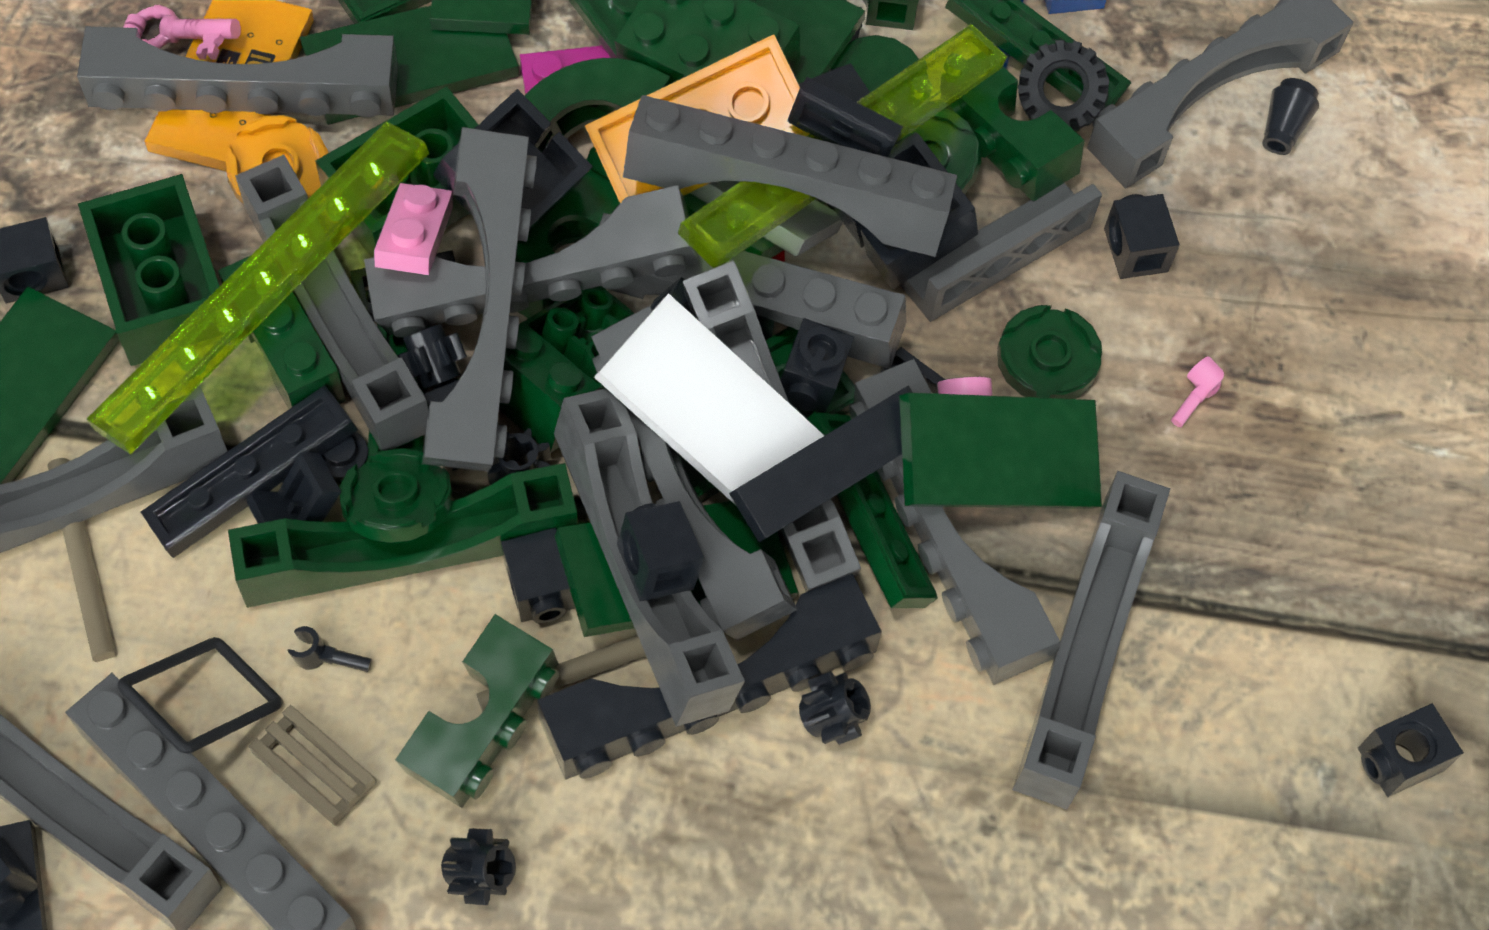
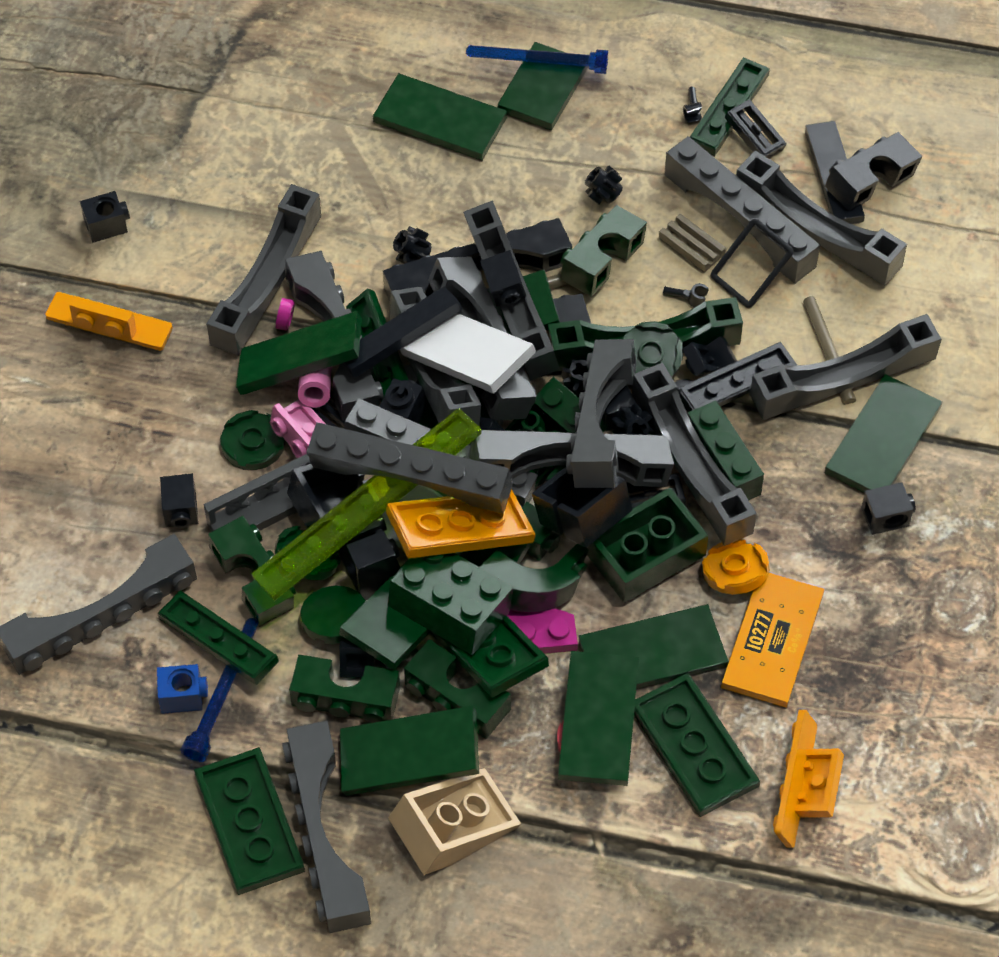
camera: 170 degrees left, 5 degrees down
(149, 261) = (804, 490): dark green brick -> none
(173, 29) = (814, 666): bright pink piece -> none
(256, 288) = (731, 449): clear neon green tile -> none
(344, 79) = (836, 618): dark grey arch -> none
(413, 229) = (644, 469): bright pink plate -> none
(842, 120) = (372, 484): black tile -> none
(969, 341) = (295, 425): none -> bright pink bracket
(1040, 566) = (285, 314): none -> dark pink tile
(1069, 56) = (209, 593): black tyre -> none
(1207, 379) = (159, 415): bright pink hand -> none
(1289, 114) = (55, 584): black cone -> none
(1342, 540) = (109, 321): none -> light orange bracket

